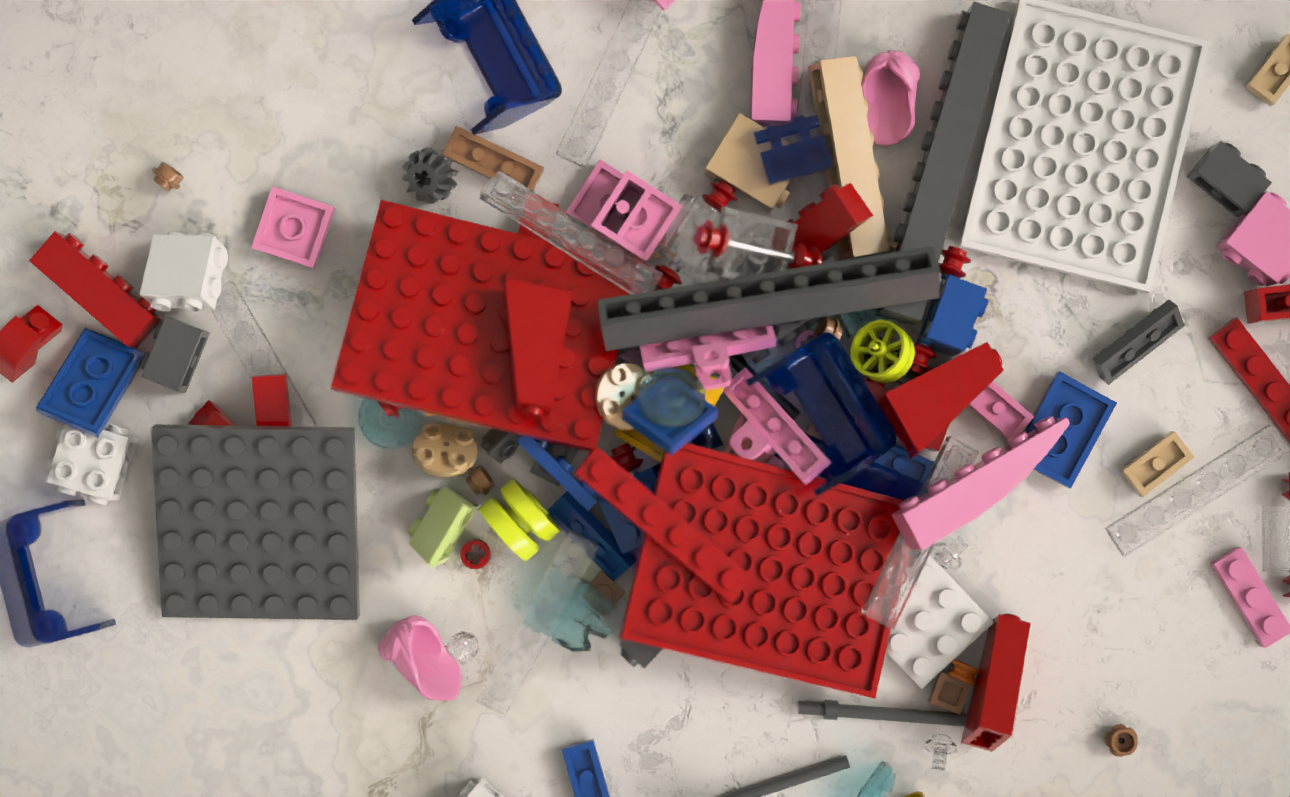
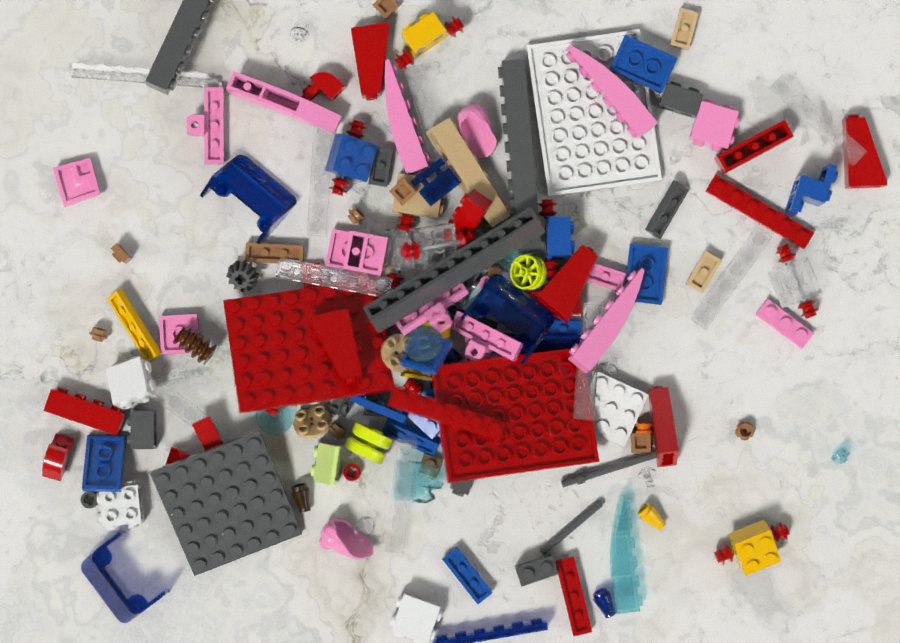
camera: 20 degrees left, 0 degrees up
(36, 430) = (88, 505): none -> dark grey bush
(228, 185) = (134, 325): none -> yellow plate
(252, 65) = (120, 254): none -> medium nougat plate
(308, 253) = (195, 345): none -> reddish brown piece
(380, 560) = (301, 496): none -> dark brown cone
(645, 154) = (356, 216): none -> medium nougat plate
(673, 59) = (350, 157): none -> blue brick
(715, 93) = (381, 167): none -> dark grey plate
(735, 143) = (402, 191): none -> medium nougat plate
(1133, 123) = (615, 93): none -> bright pink slope
(1195, 97) = (643, 64): none -> blue plate

